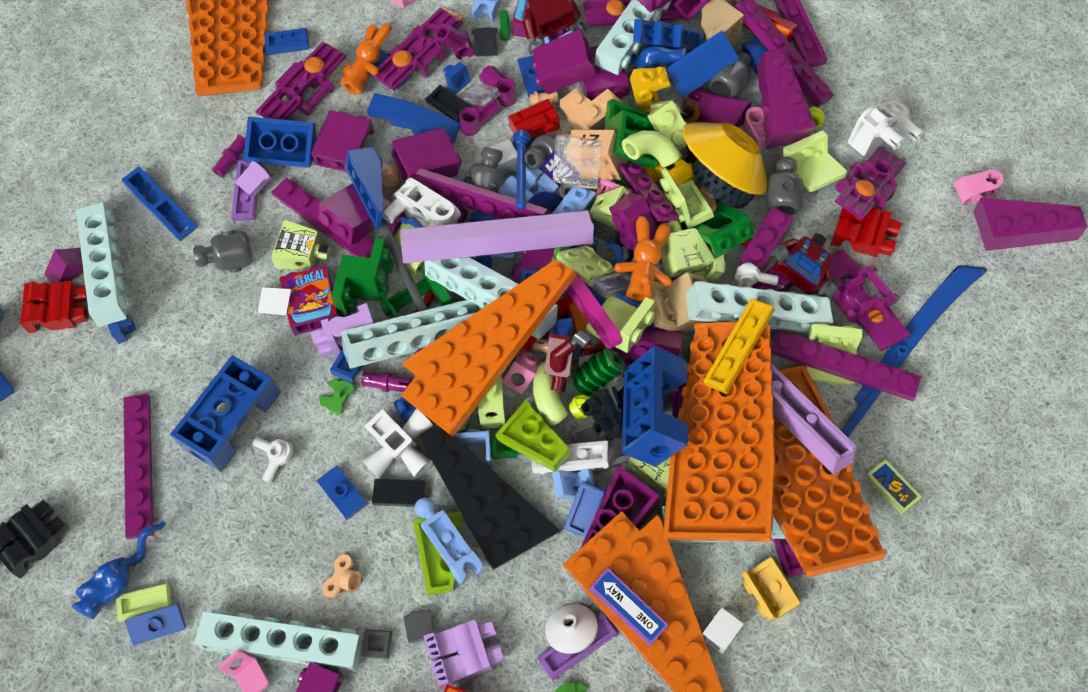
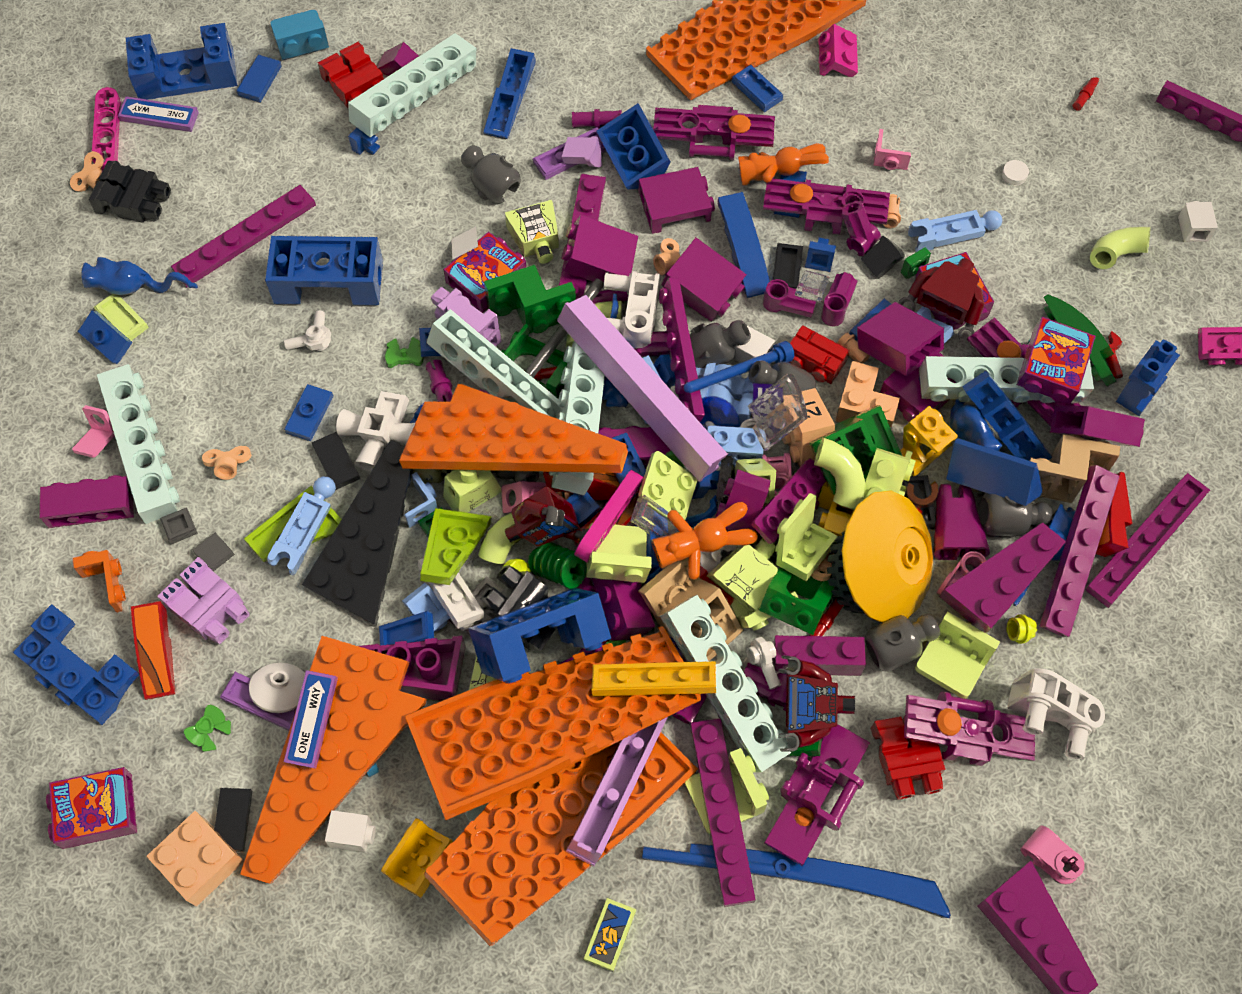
camera: 55 degrees right, 0 degrees up
(365, 173) = (640, 240): blue slope -> none

